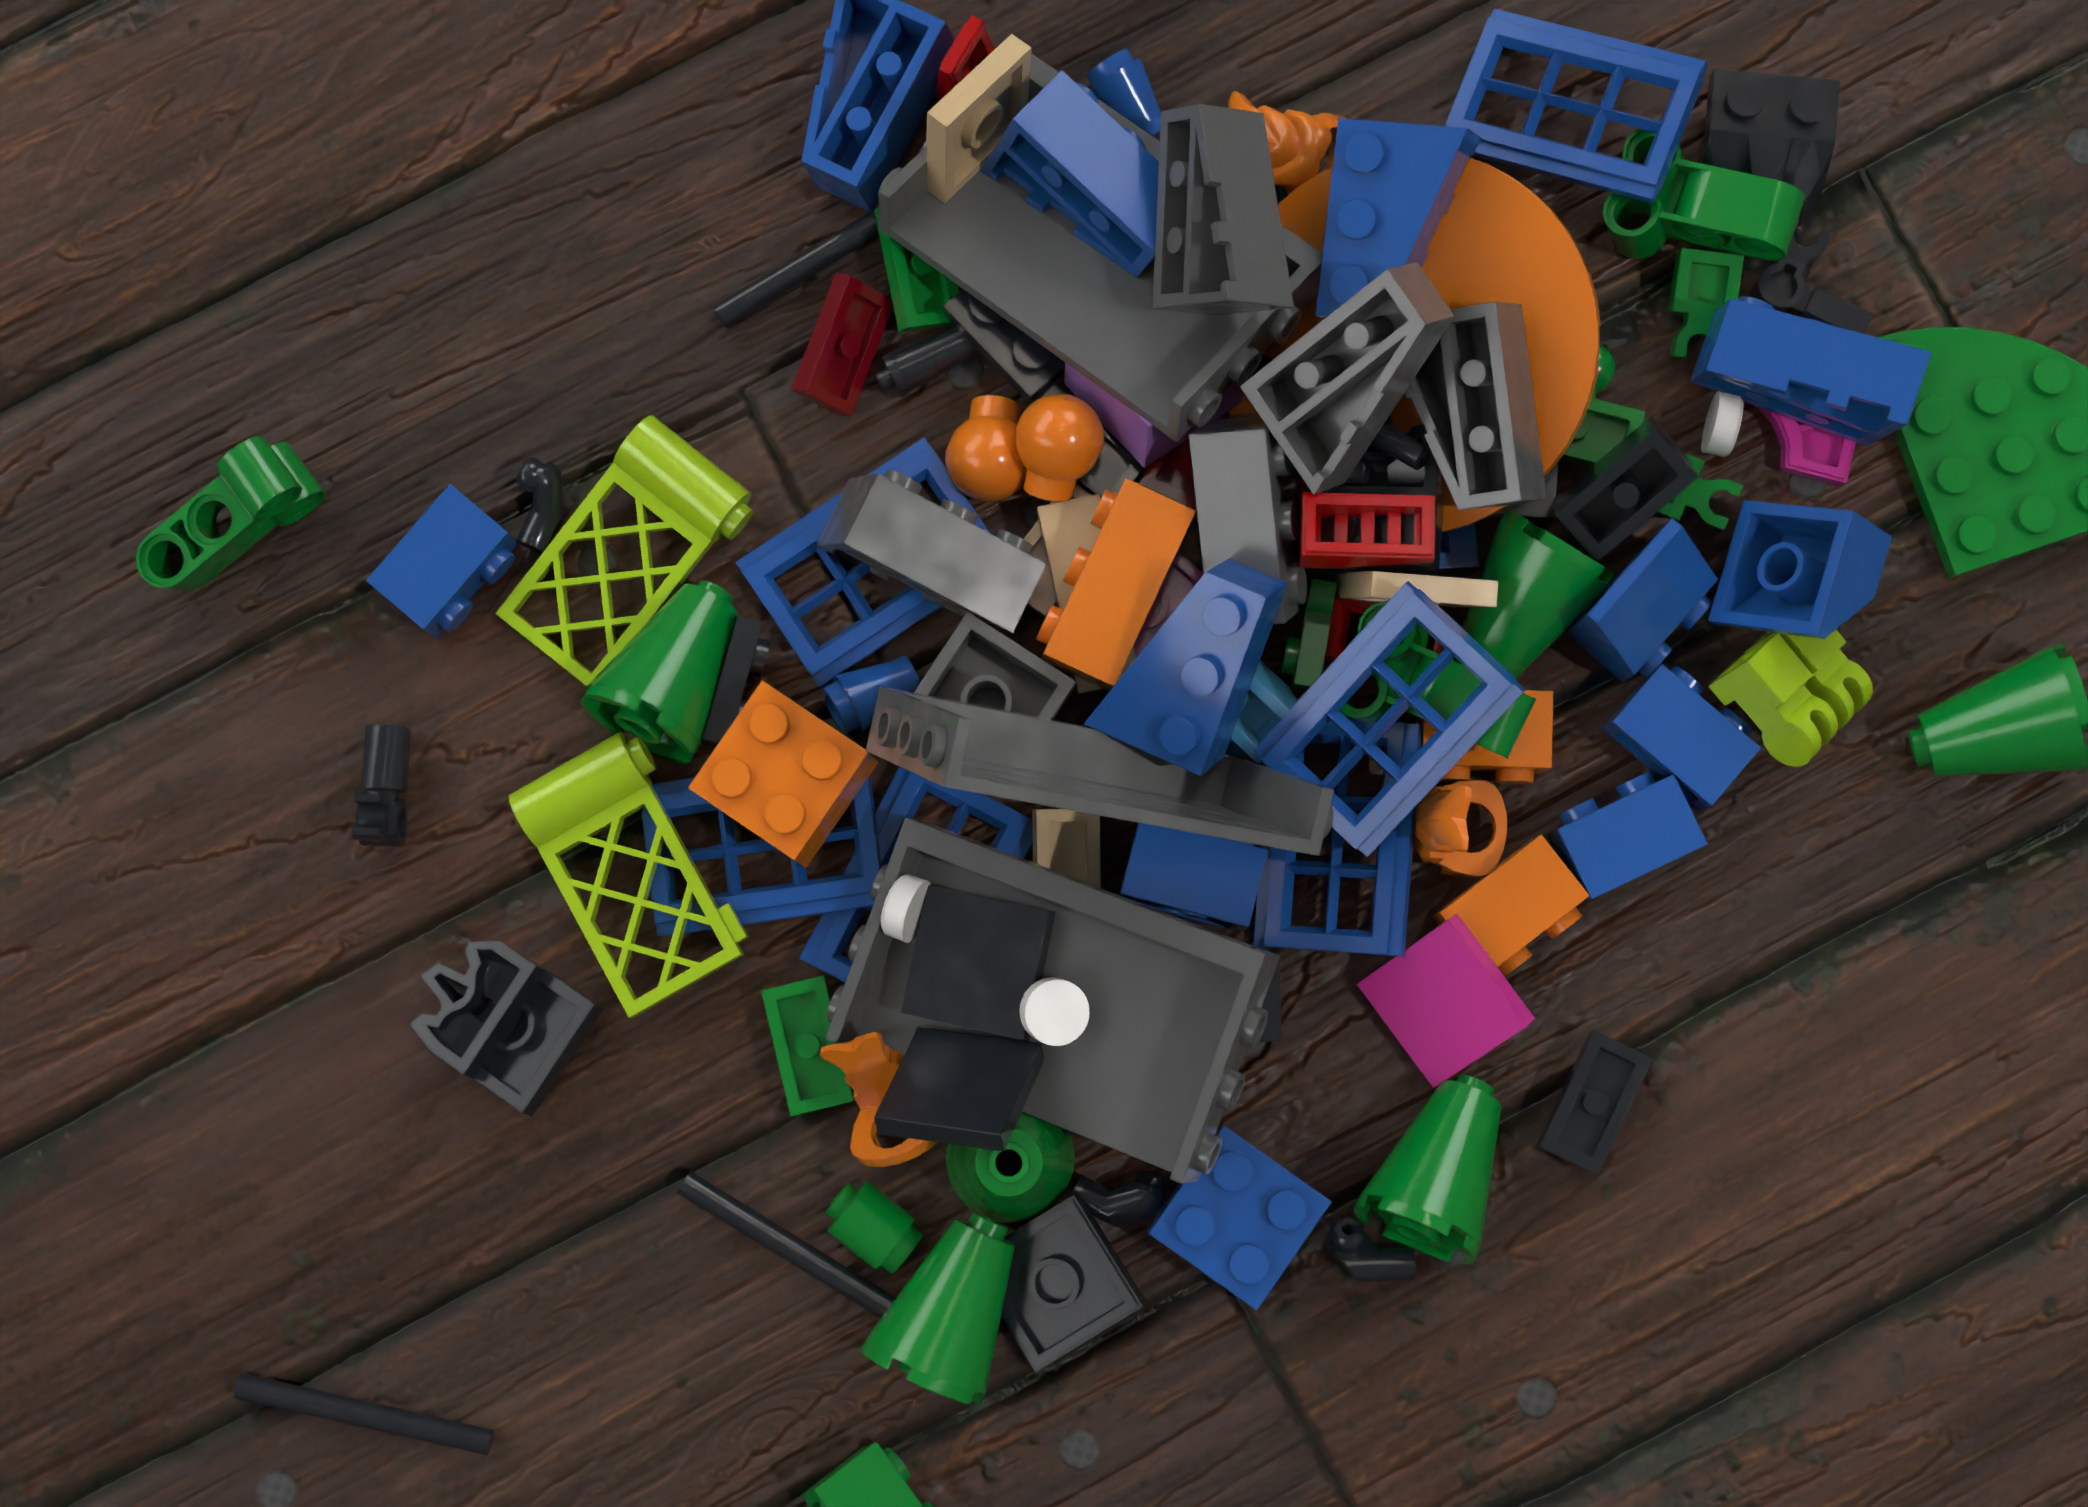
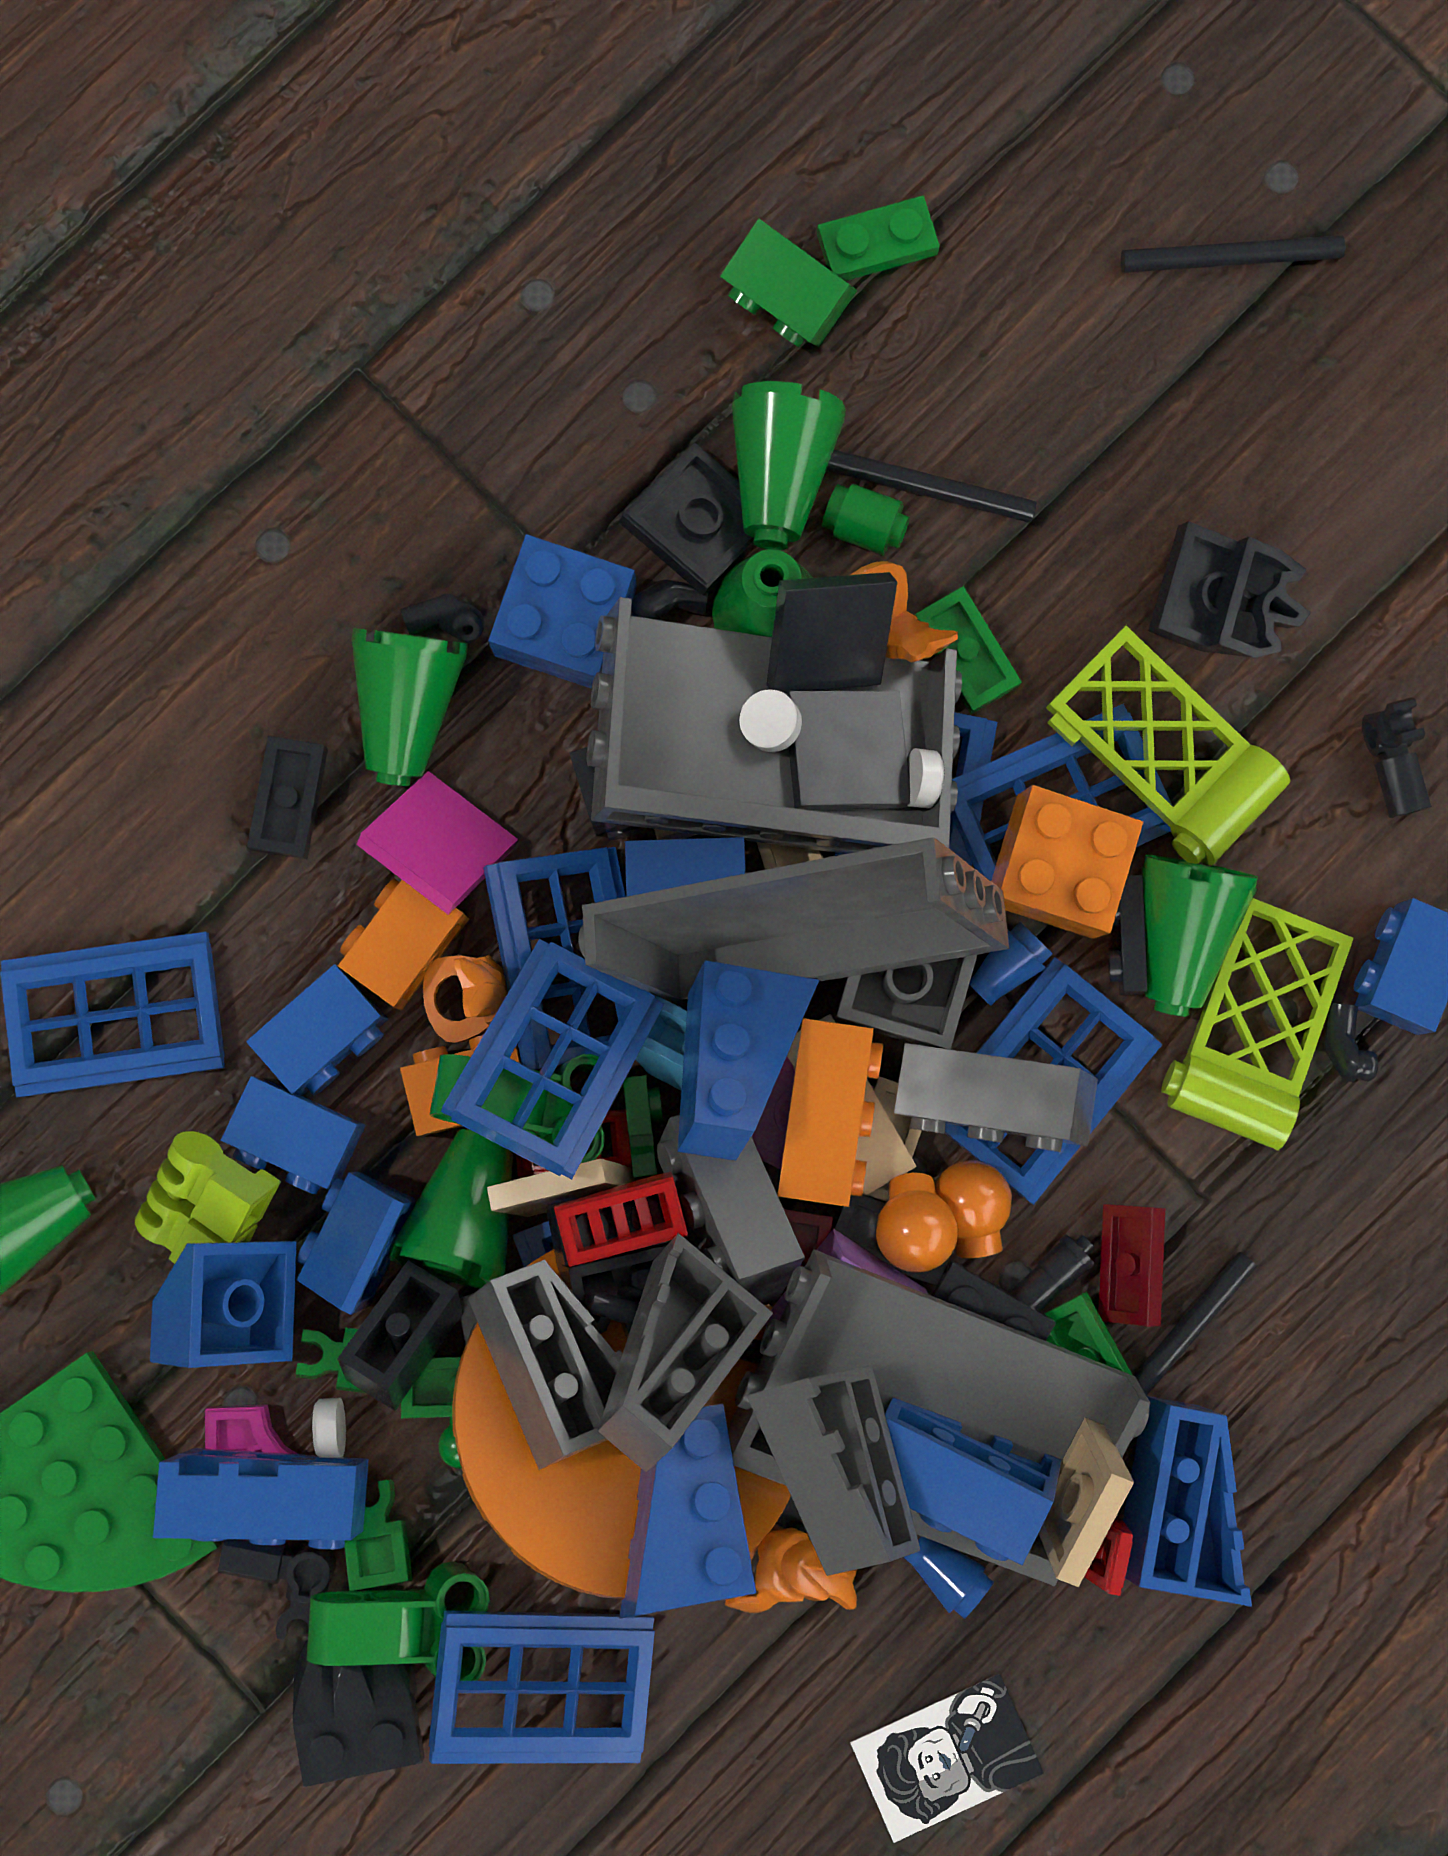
camera: 160 degrees right, 0 degrees up
(1837, 982) = (117, 1066): none -> blue piece

